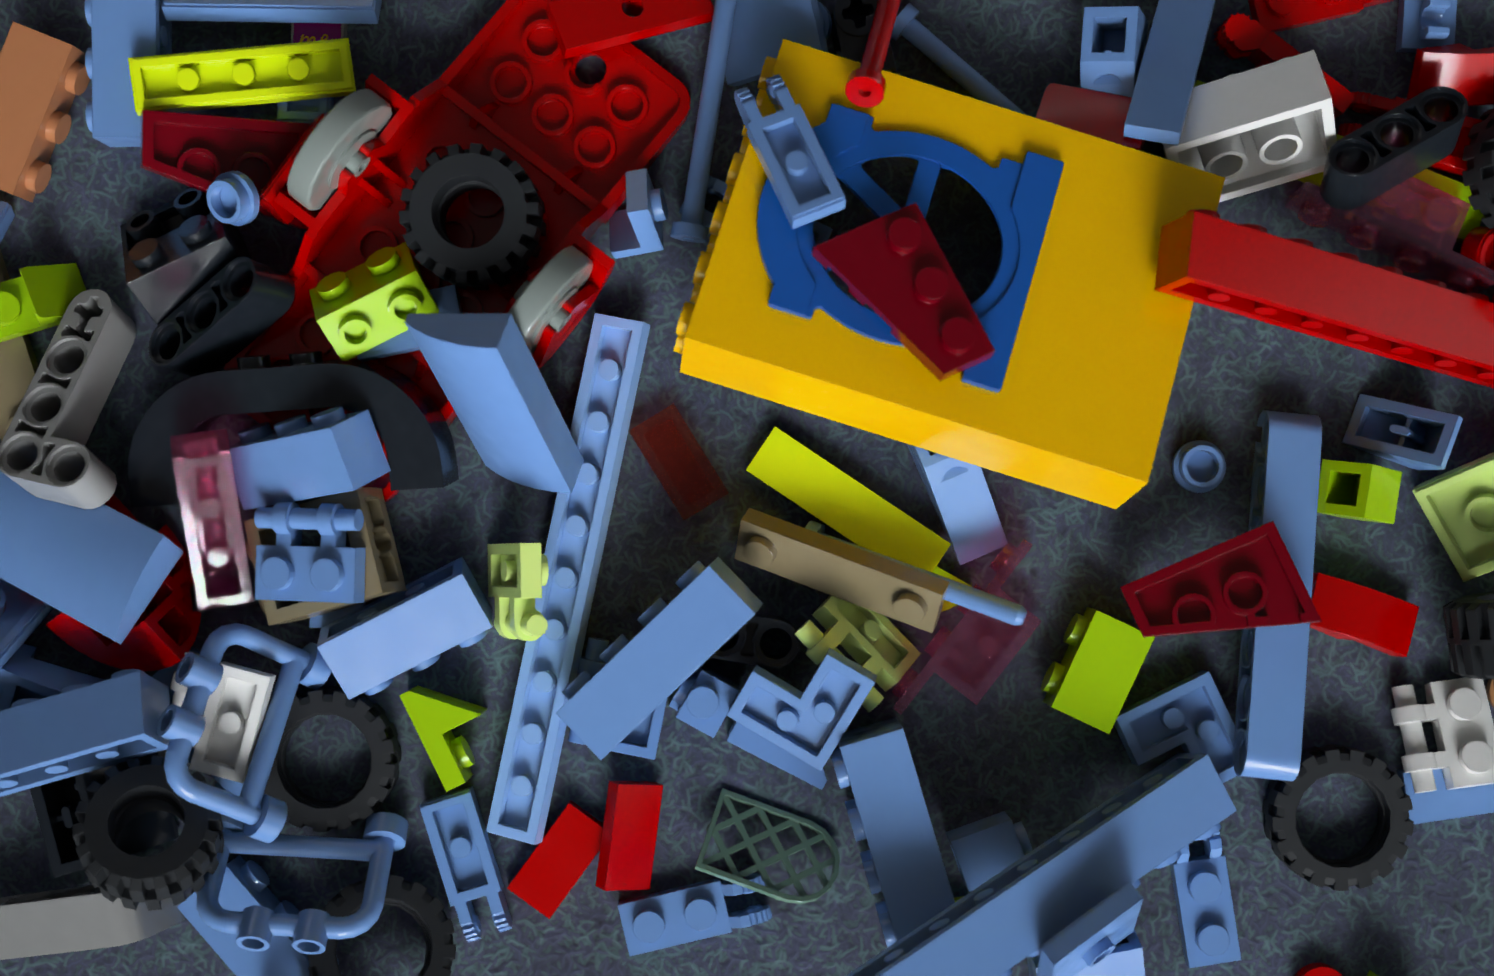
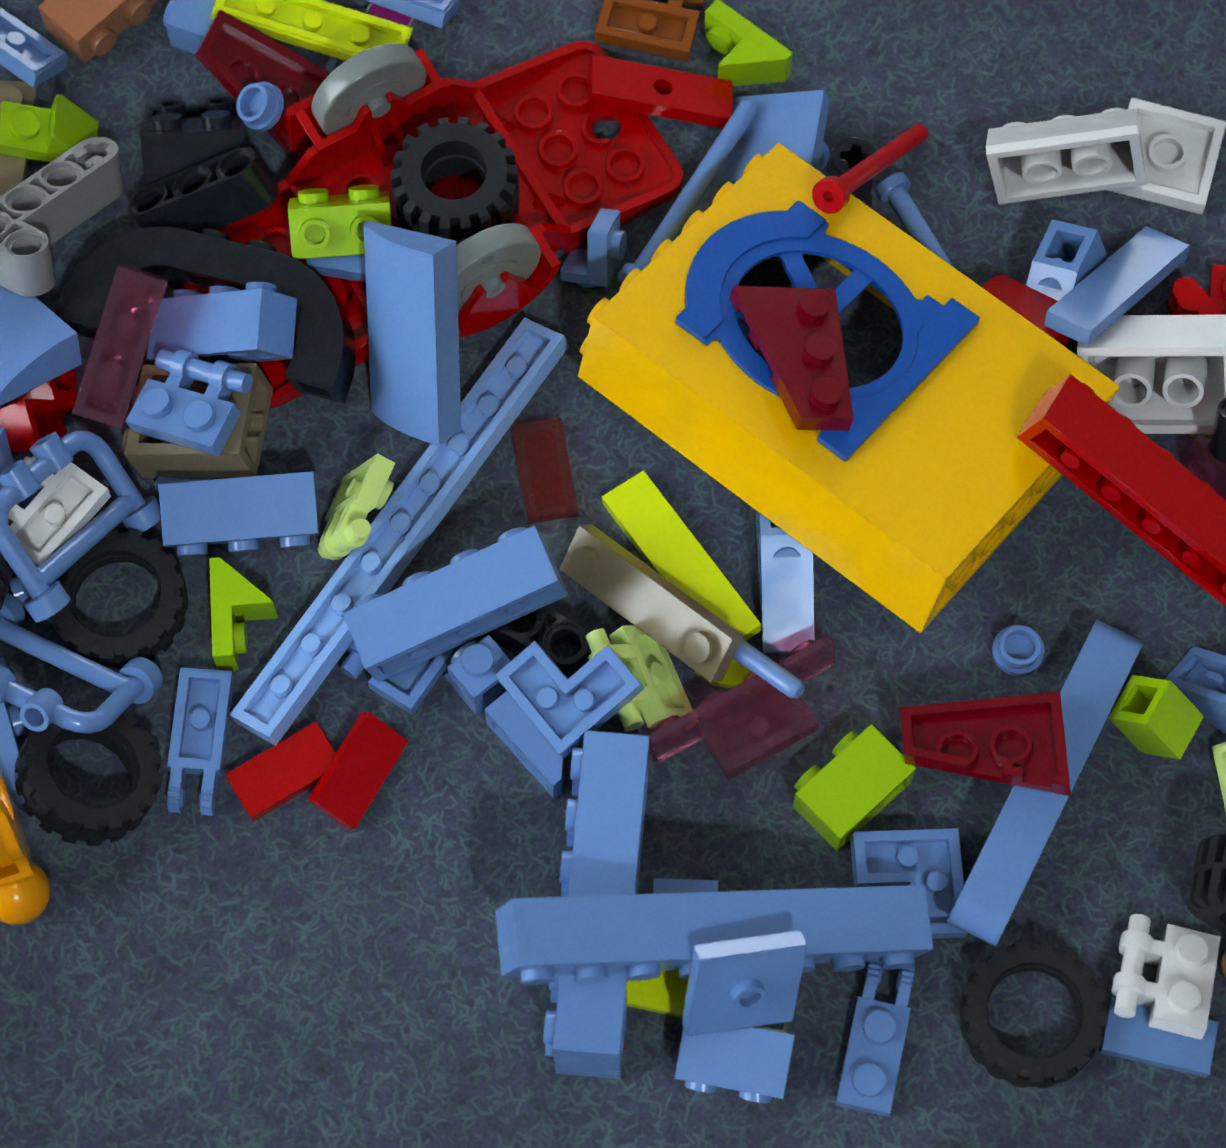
camera: 20 degrees right, 20 degrees down
(686, 914) = (381, 866): medium blue hinge -> none
(791, 155) = (744, 217): medium blue hinge -> none
(792, 820) = (470, 865): sand green window -> none
(1363, 615) = (1116, 827): red slope -> none

